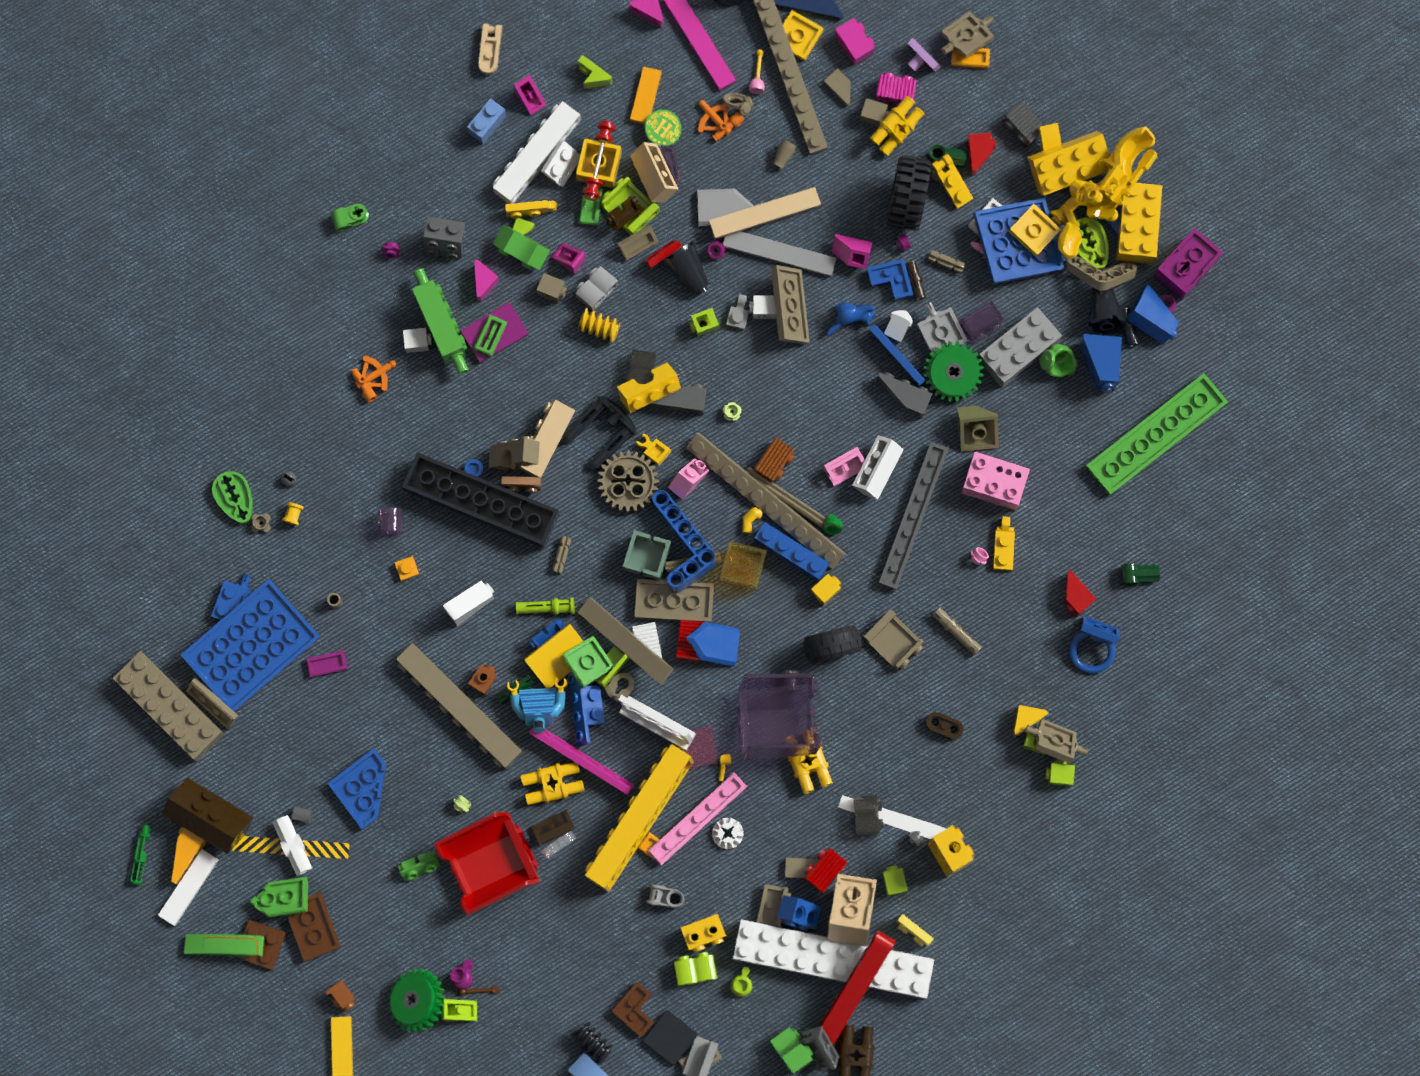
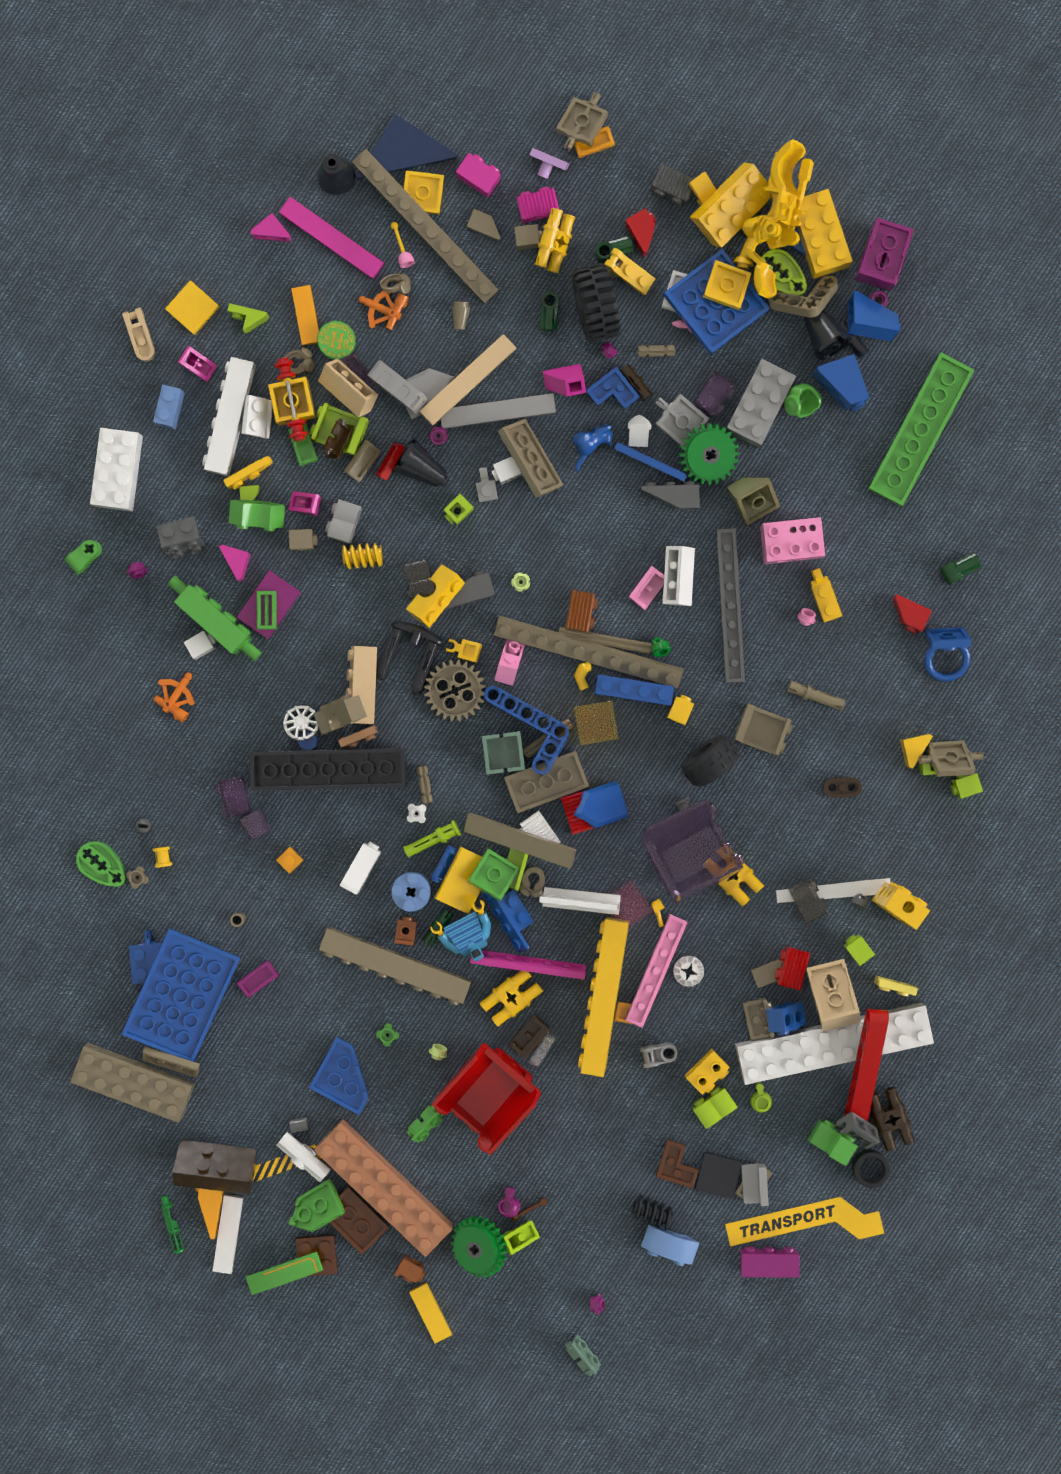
camera: 25 degrees left, 10 degrees up
(353, 907) = (384, 1187): none -> nougat brick
(383, 488) = (234, 797): none -> clear purple brick
(414, 155) = (116, 469): none -> white brick
(418, 764) = (382, 1034): none -> bright green plate
(474, 449) = (300, 722): none -> white wheel
(507, 633) = (412, 880): none -> medium blue brick
(547, 45) = (192, 307): none -> yellow tile
(547, 576) = (420, 817): none -> white plate
(628, 138) = (308, 363): none -> dark tan piece
(698, 190) = (397, 387): none -> light grey axle
(864, 187) = (549, 313): none -> dark green piece

